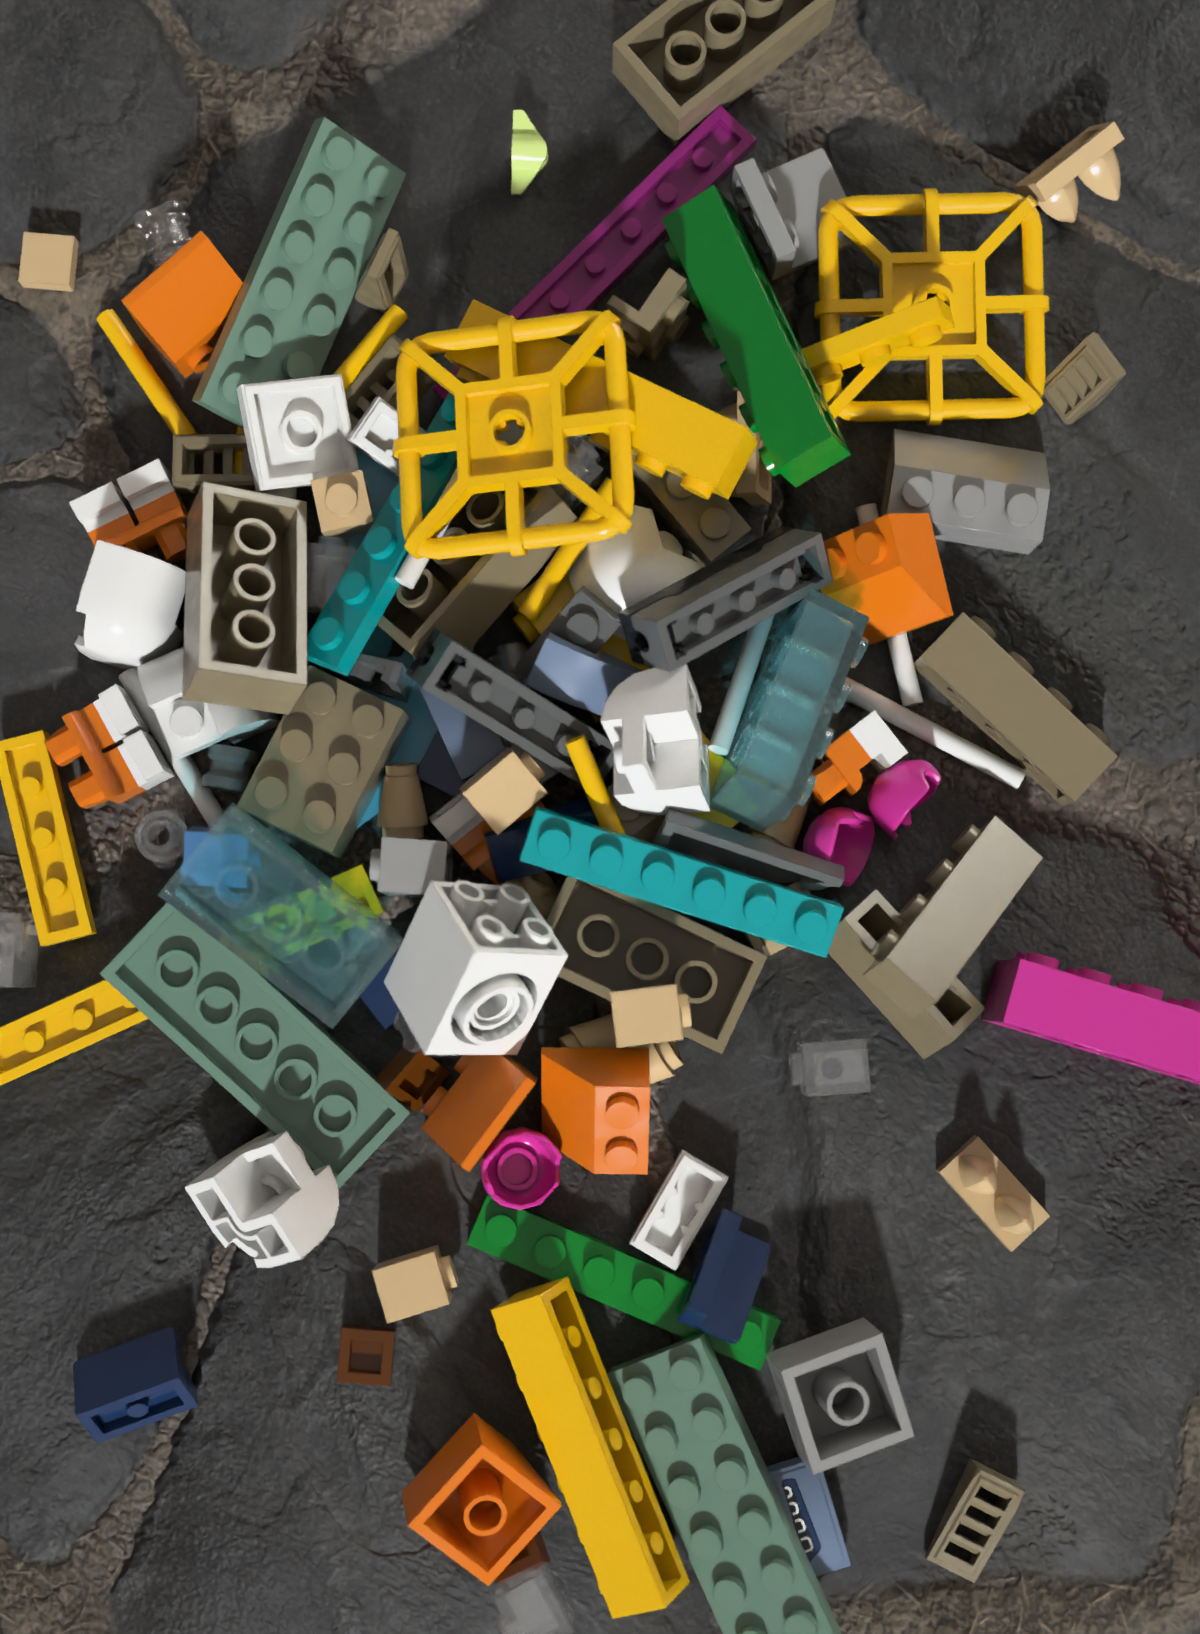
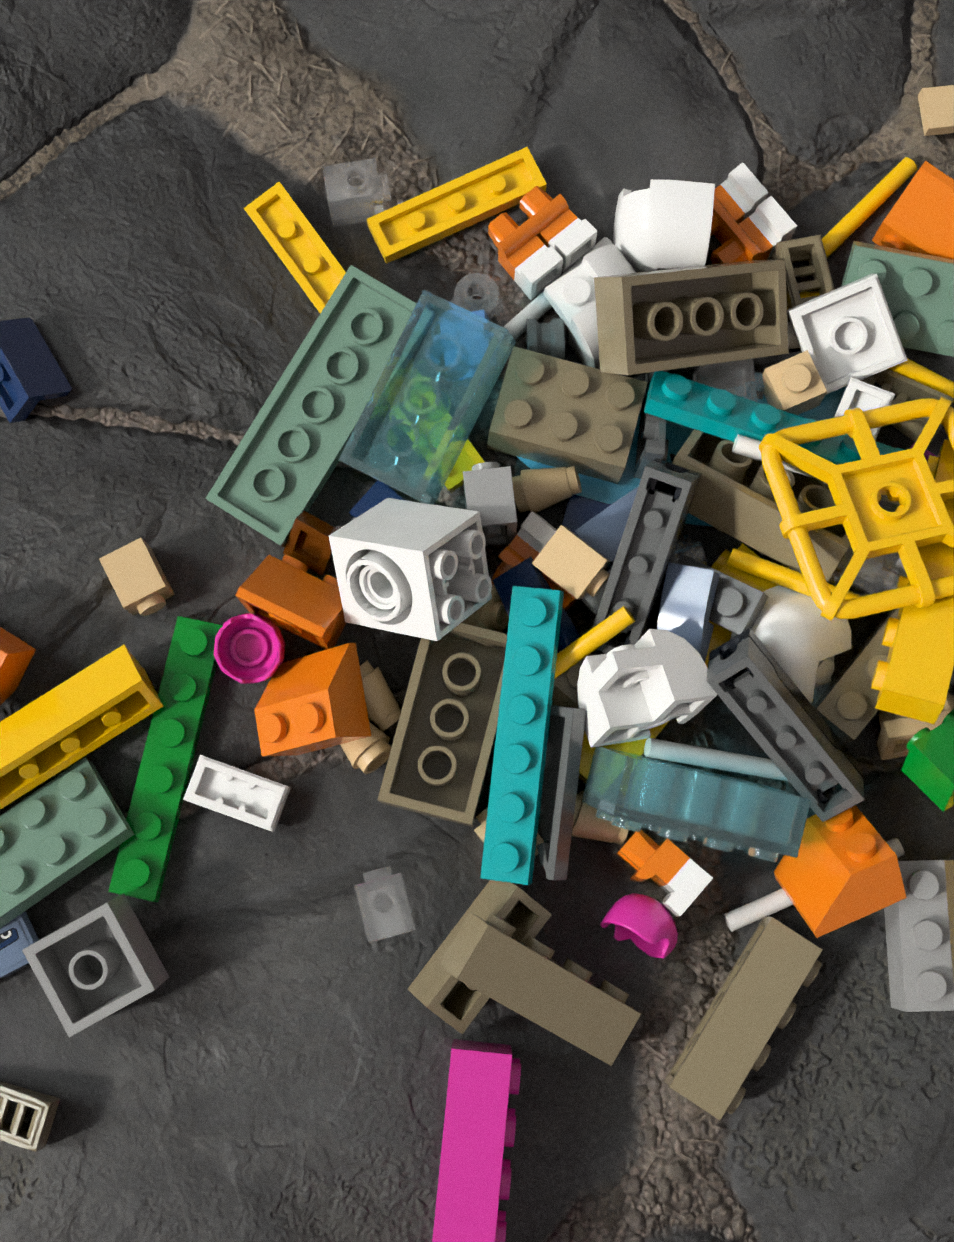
camera: 85 degrees right, 5 degrees down
(267, 1200) = (186, 441): white brick -> none
(366, 1355) = (71, 550): reddish brown plate -> none
(649, 1015) = (398, 725): tan brick -> none
(725, 1279) = (181, 845): dark blue panel -> none
(841, 838) = (591, 878): dark pink hair -> none
(935, 735) = (705, 944): white bar -> none
(993, 1193) = (298, 1077): tan tile -> none

